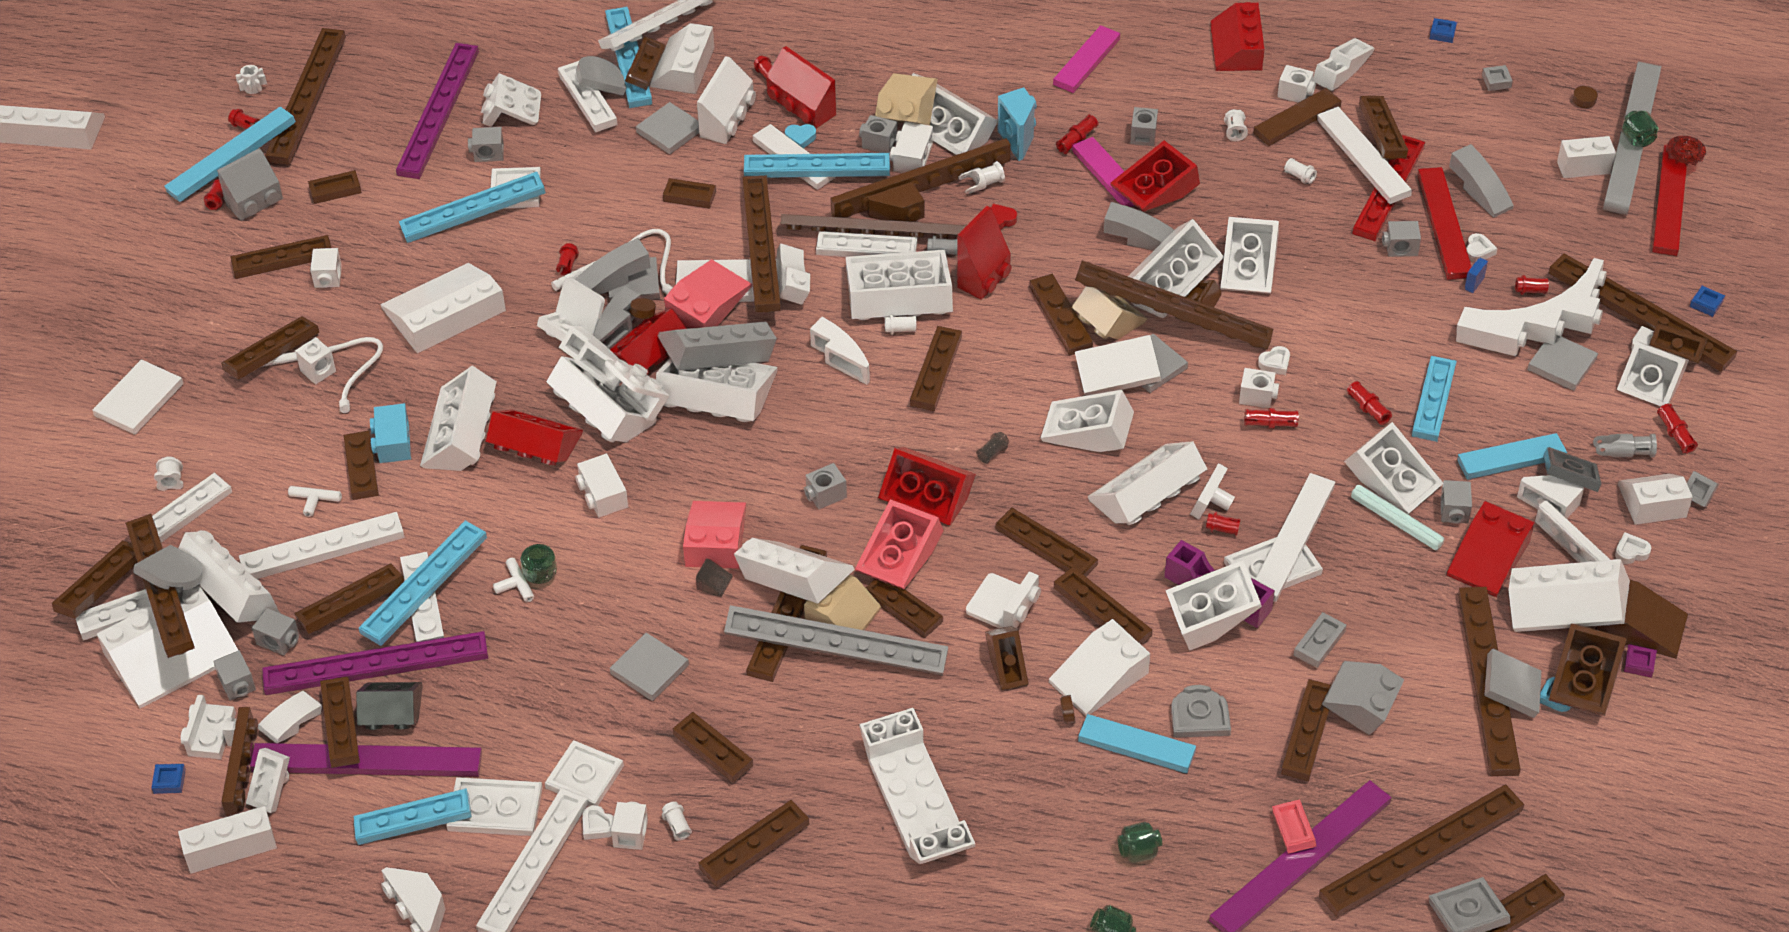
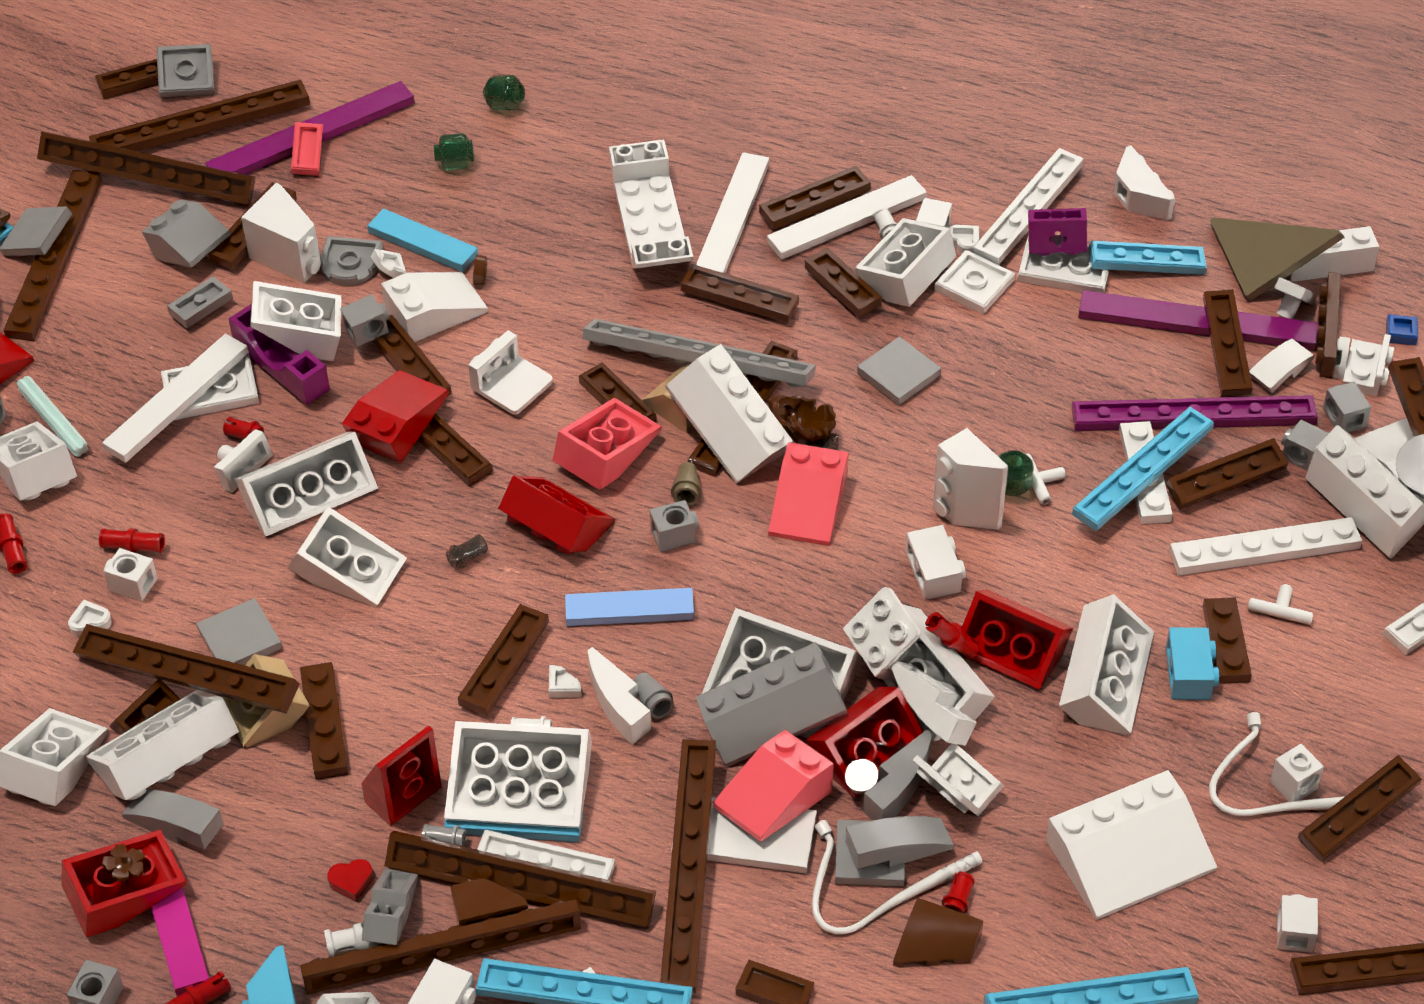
camera: 170 degrees left, 0 degrees up
(292, 817) = (1269, 250): none -> dark tan tile
(388, 704) = (1176, 362): pearl dark grey slope -> none
(501, 803) = (1070, 224): none -> magenta brick
(575, 521) = (969, 482): none -> white slope
(579, 233) = (938, 936): none -> reddish brown slope
(581, 404) = (952, 635): none -> red pin
(651, 763) = (907, 260): none -> white slope
(717, 831) = (845, 217): none -> white tile
(730, 581) = (801, 418): none -> reddish brown hair
(791, 274) = (656, 809): white slope -> none
(809, 720) = (740, 293): none -> reddish brown plate
(813, 357) = (654, 695): none -> light grey cone
(822, 525) = (686, 484): none -> dark tan cone
(835, 819) = (733, 212): none -> white tile
(848, 425) = (629, 606): none -> light blue tile
(885, 363) = (563, 684): none -> white tile
(963, 189) = (389, 906): none -> light grey slope
(1007, 657) = (526, 325): reddish brown slope -> none
(1092, 540) = (394, 414): none -> red slope
(1118, 366) = (283, 623): white tile -> none
(1151, 616) = (365, 319): none -> light grey brick
(1154, 174) = (124, 864): none -> reddish brown plant
(1157, 707) = (389, 262): none -> white tile
(1265, 698) = (281, 235): none -> white slope
(1456, 771) = (146, 167): none -> reddish brown plate

